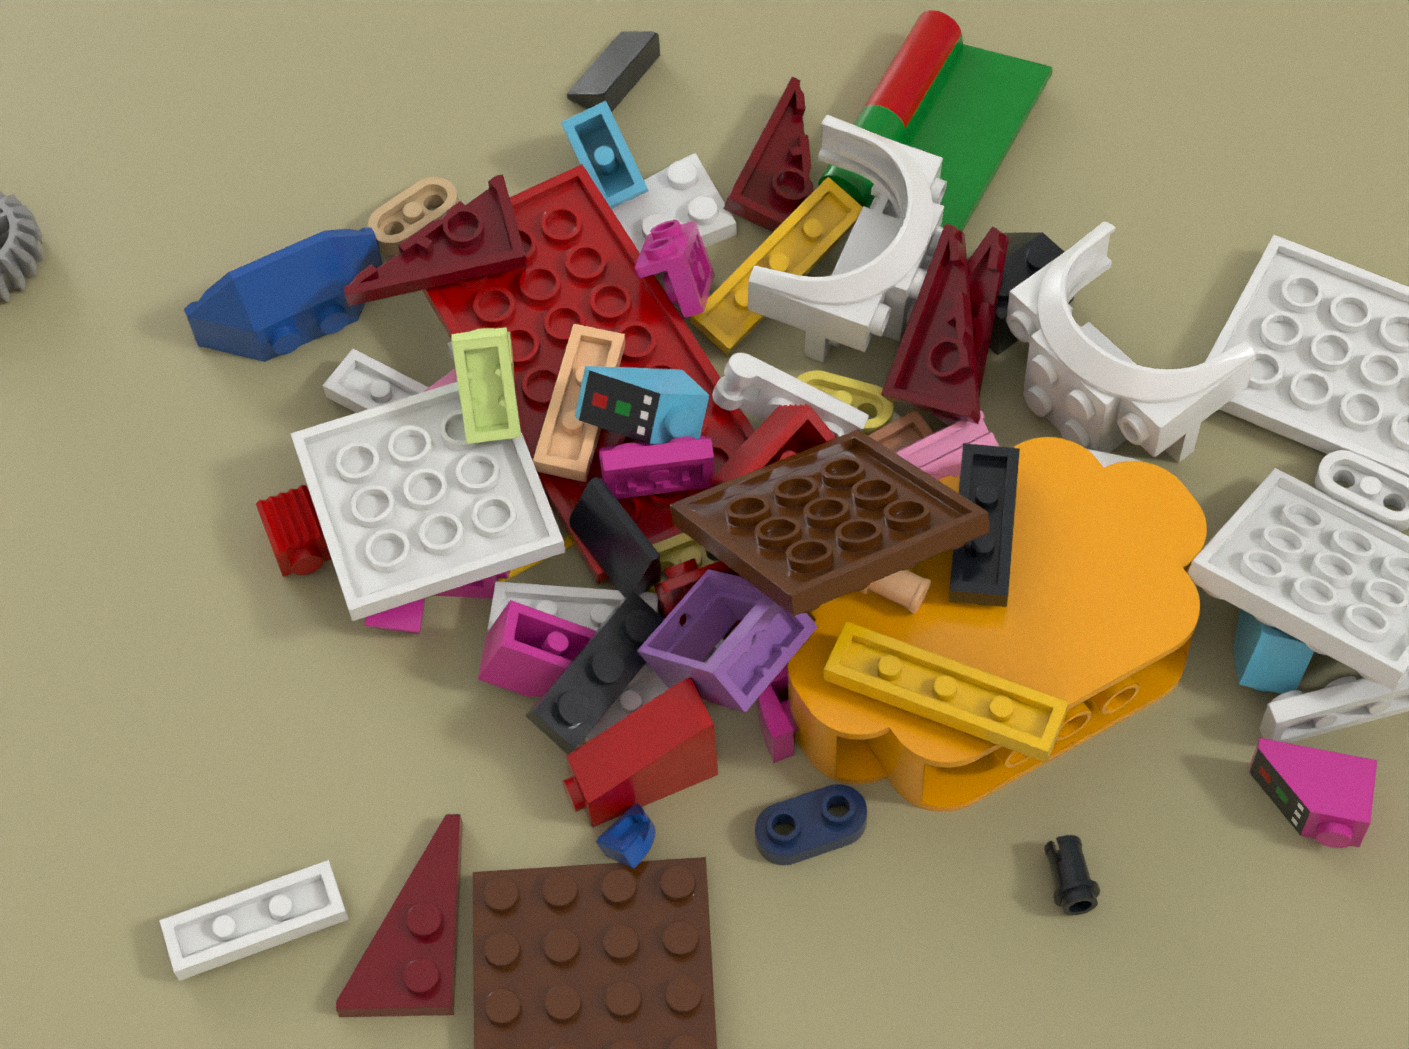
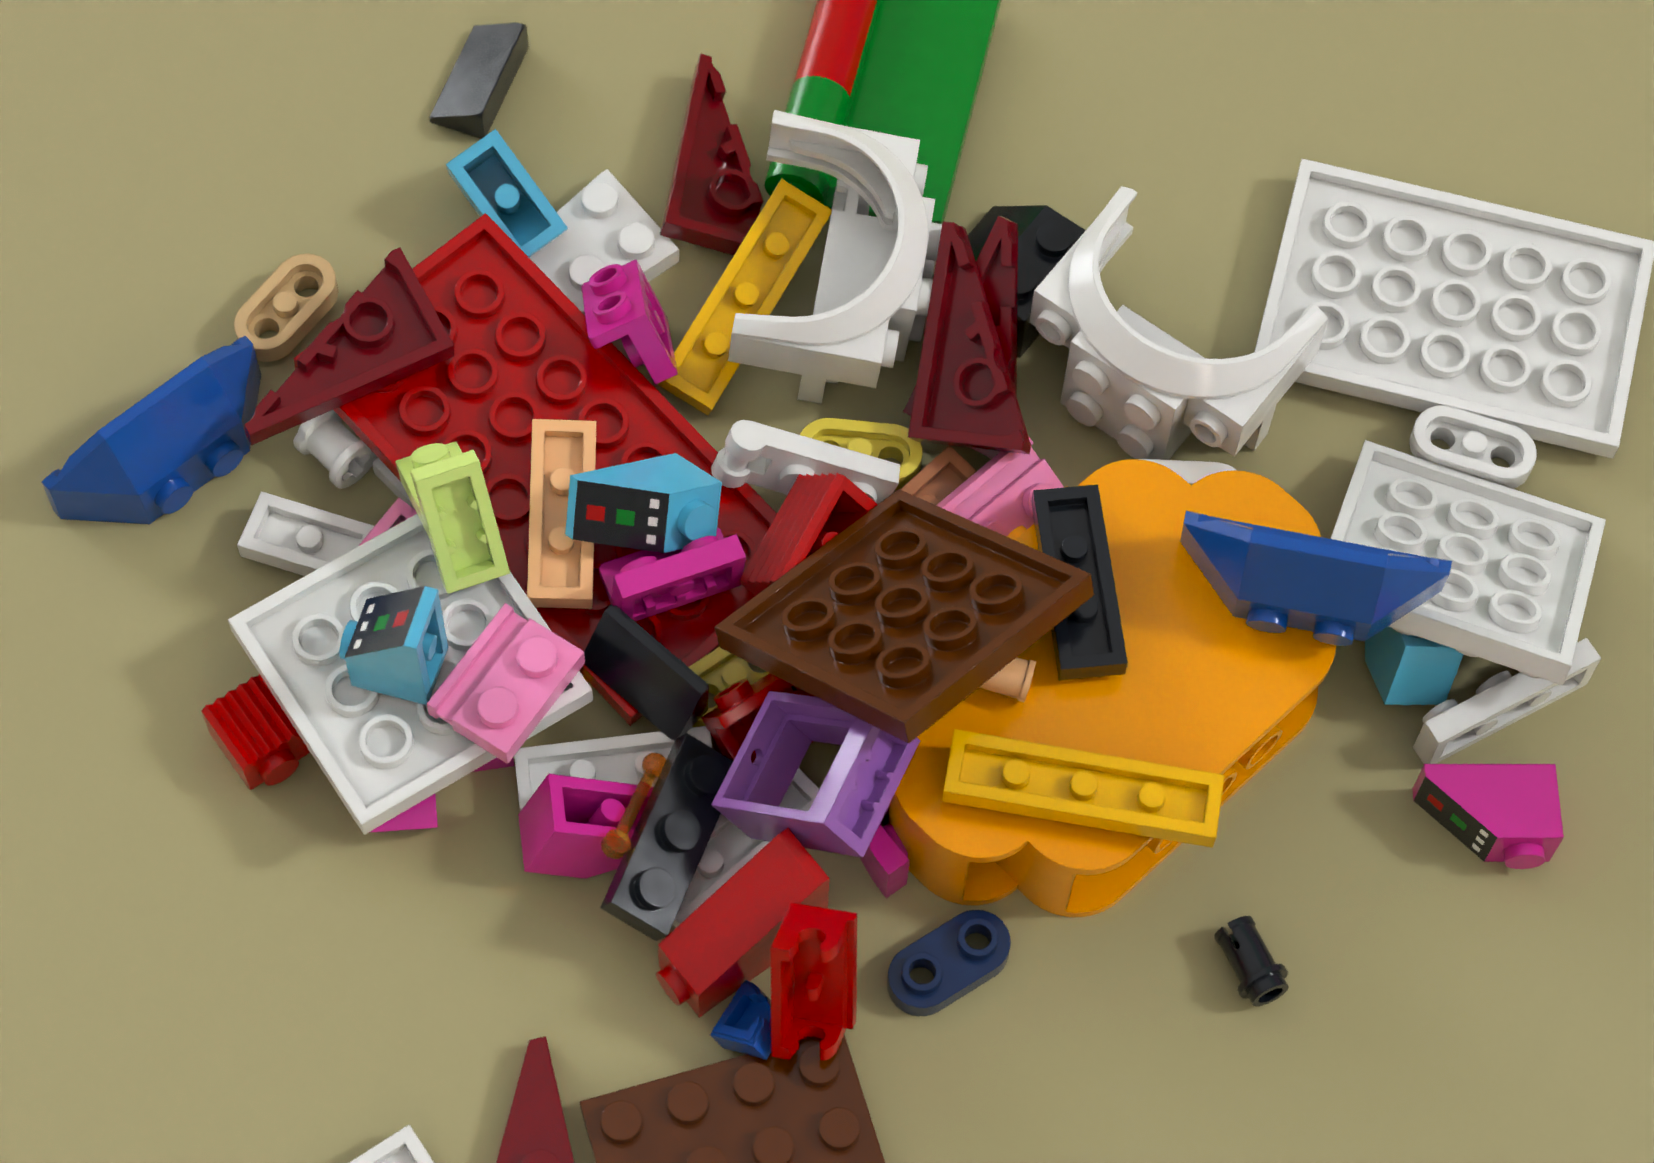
camera: 20 degrees left, 5 degrees up
(412, 473) = (397, 644): none -> medium azure slope
(421, 326) = (334, 448): none -> white bush
(494, 521) = (506, 683): none -> bright pink plate
(552, 665) = (616, 841): none -> clear orange hinge
(683, 808) = (813, 979): none -> red hinge
(1186, 558) = (1309, 580): none -> blue wedge

